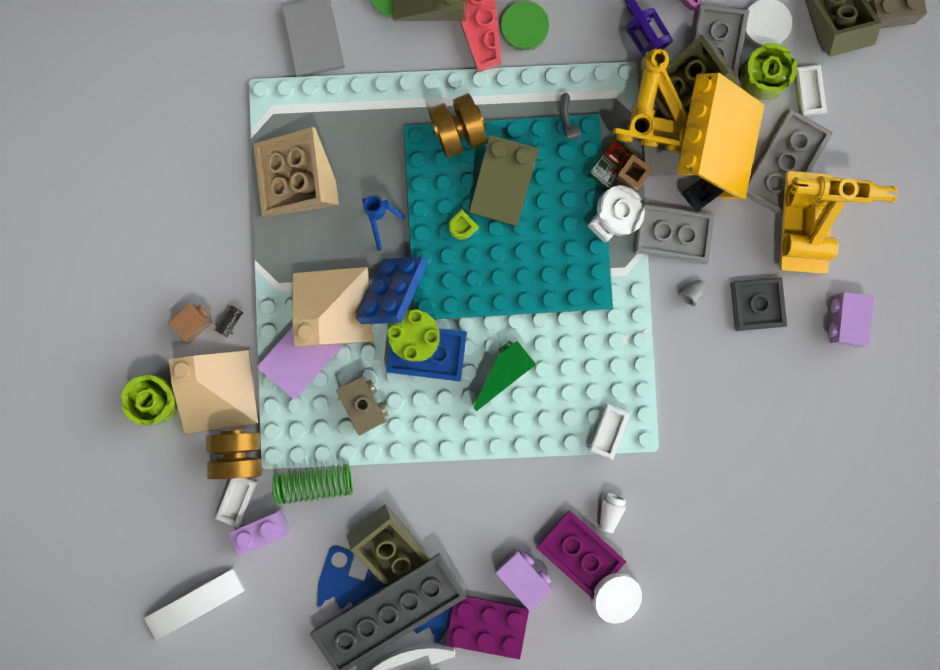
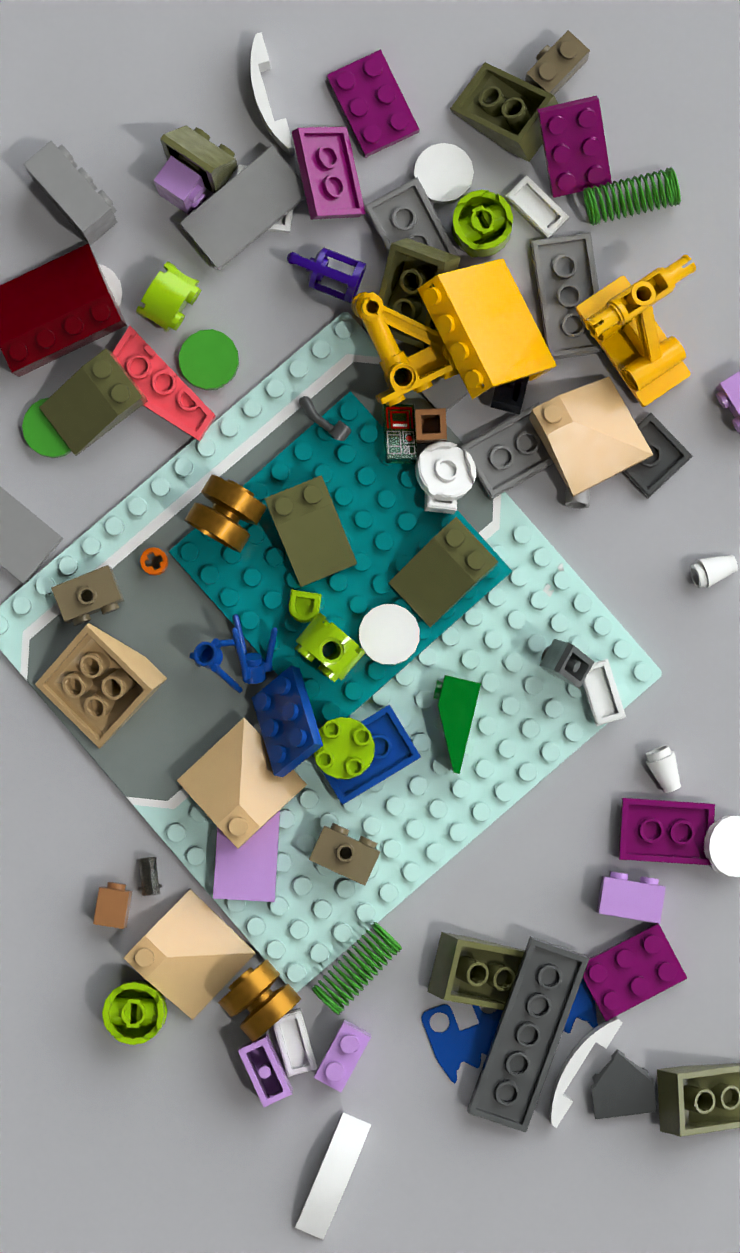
camera: 35 degrees left, 0 degrees up
(202, 503) = (265, 1070): none -> lavender brick
(330, 112) = (88, 595): none -> dark tan brick
(394, 131) = (157, 552): none -> orange bush
(399, 238) = (252, 664): none -> blue plant
(455, 279) = (345, 652): none -> lime brick
(502, 286) = (389, 634): none -> white tile
(569, 273) = (443, 572): none -> olive slope
(602, 394) = (566, 662): none -> dark grey slope
(731, 259) = (589, 435): none -> tan slope
(742, 409) = (712, 570): none -> white cone
(844, 123) = (671, 187): none -> bright green piece
(868, 67) = (574, 146): none -> magenta plate

